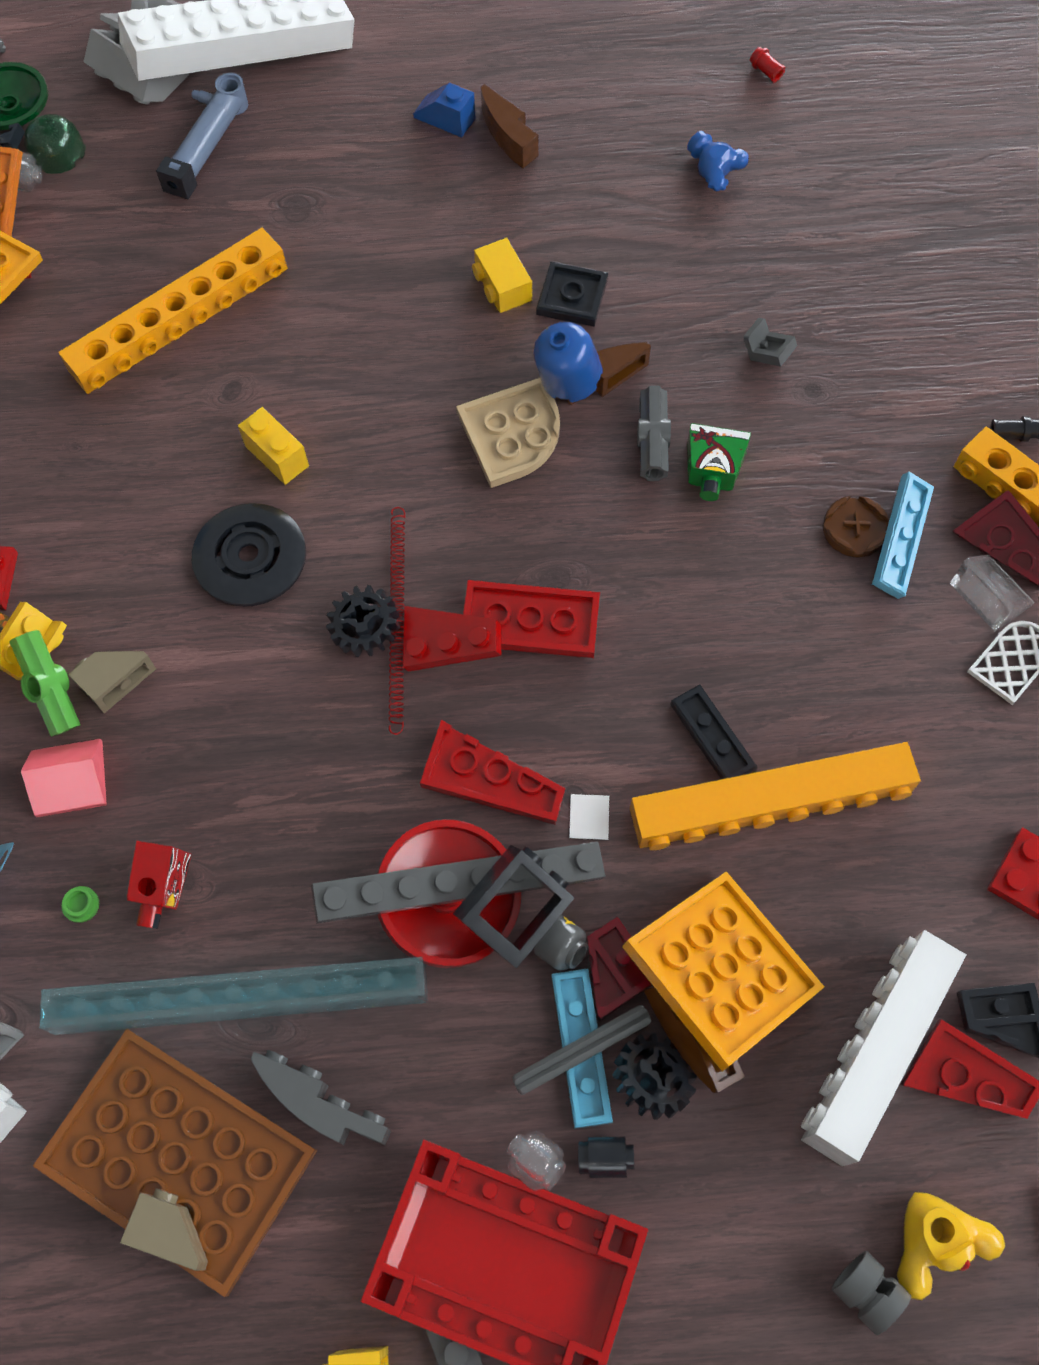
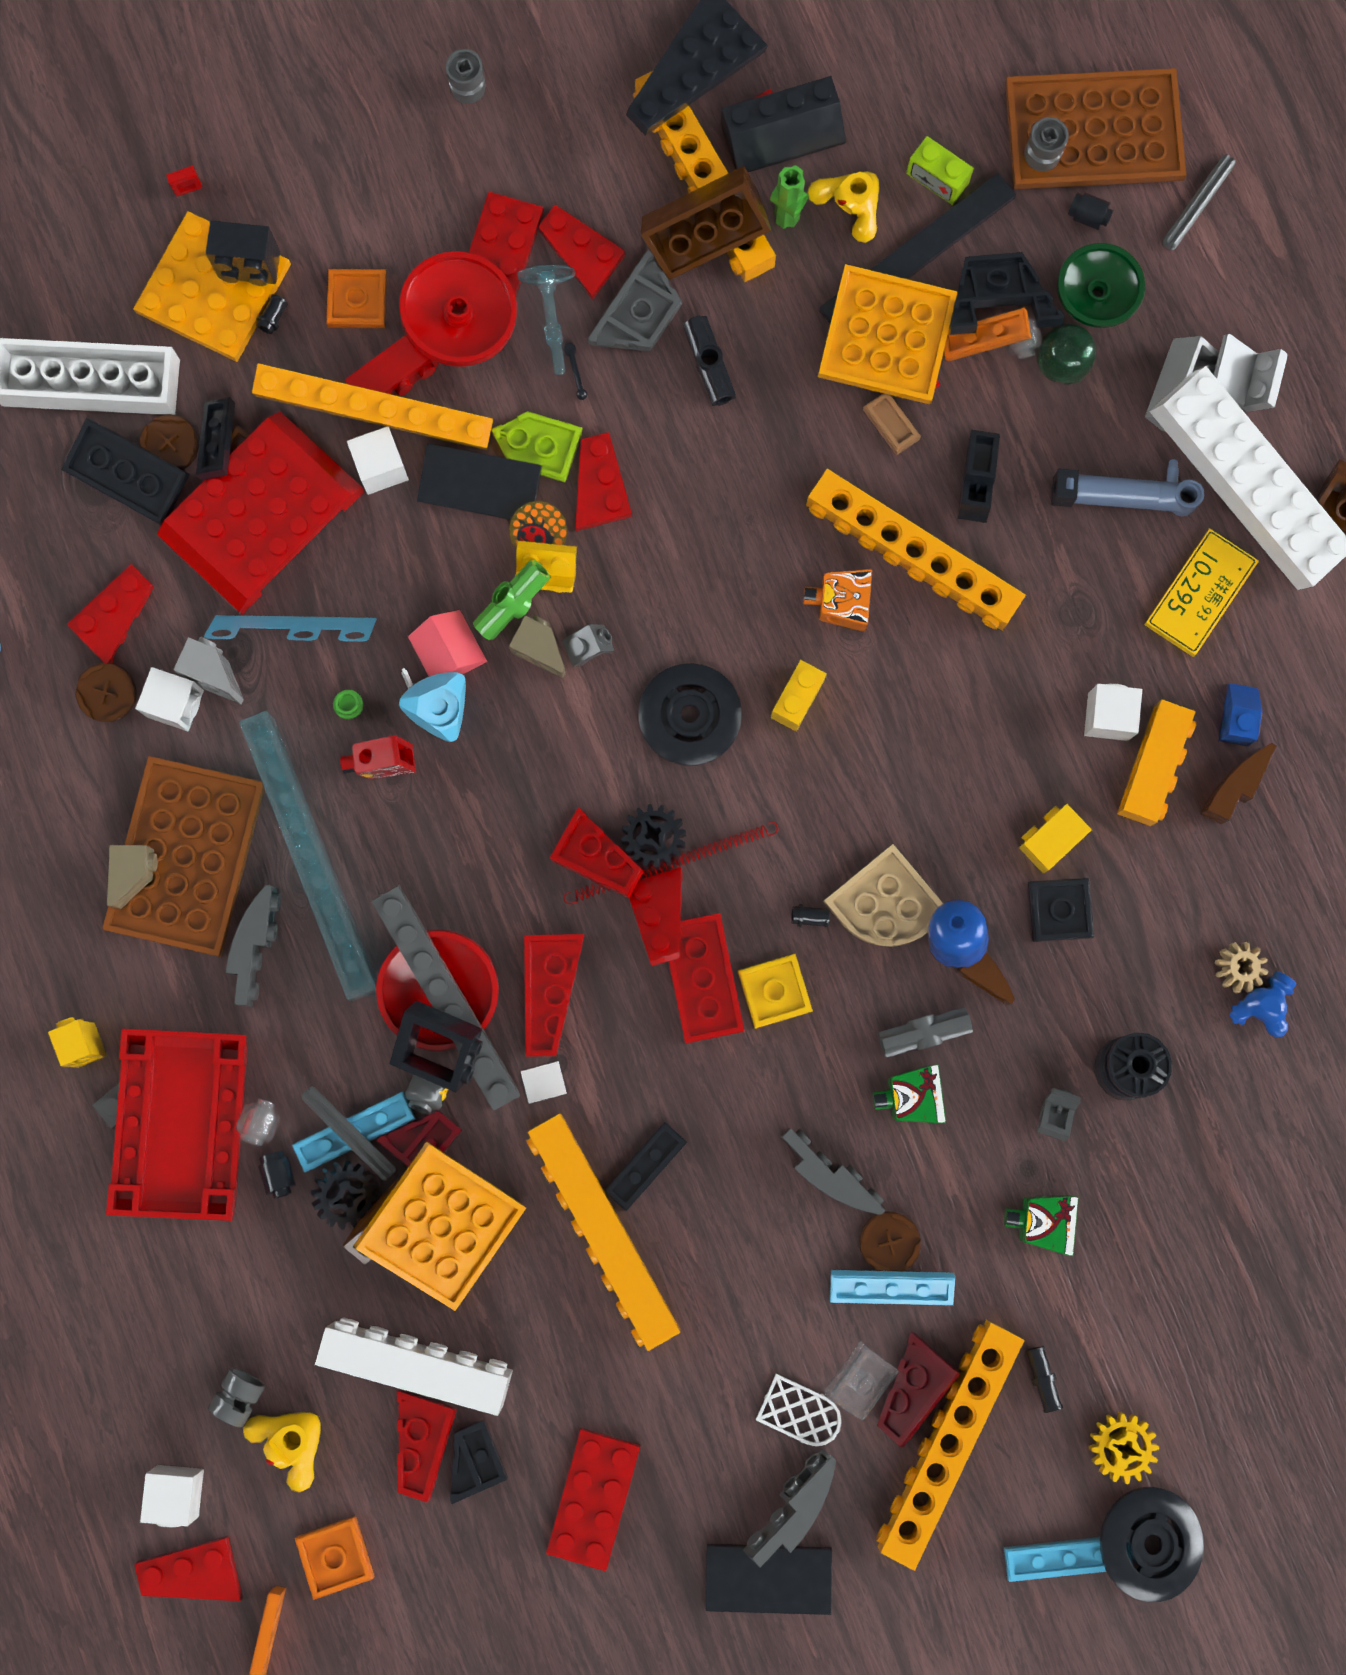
camera: 70 degrees right, 15 degrees up
(44, 298) = (891, 423): none -> medium nougat tile
(122, 802) = (436, 703): none -> medium azure hat
(130, 628) = (588, 644): none -> dark grey bracket
(133, 241) = (979, 476): none -> black slope
(195, 381) = (843, 598): none -> orange torso
(323, 111) = (1201, 592): none -> yellow tile
(360, 686) = (595, 856): none -> red wing
(403, 195) = (1113, 712): none -> white head
(463, 180) = (1156, 763): none -> light orange brick
(498, 507) = (810, 916): none -> black pin
(567, 557) = (775, 991): none -> yellow tile
(675, 169) = (1230, 967): none -> tan gear
(742, 267) = (1149, 1072): none -> black wheel
(781, 555) = (840, 1184): none -> dark grey slope
(872, 382) = (1046, 1222): none -> torso

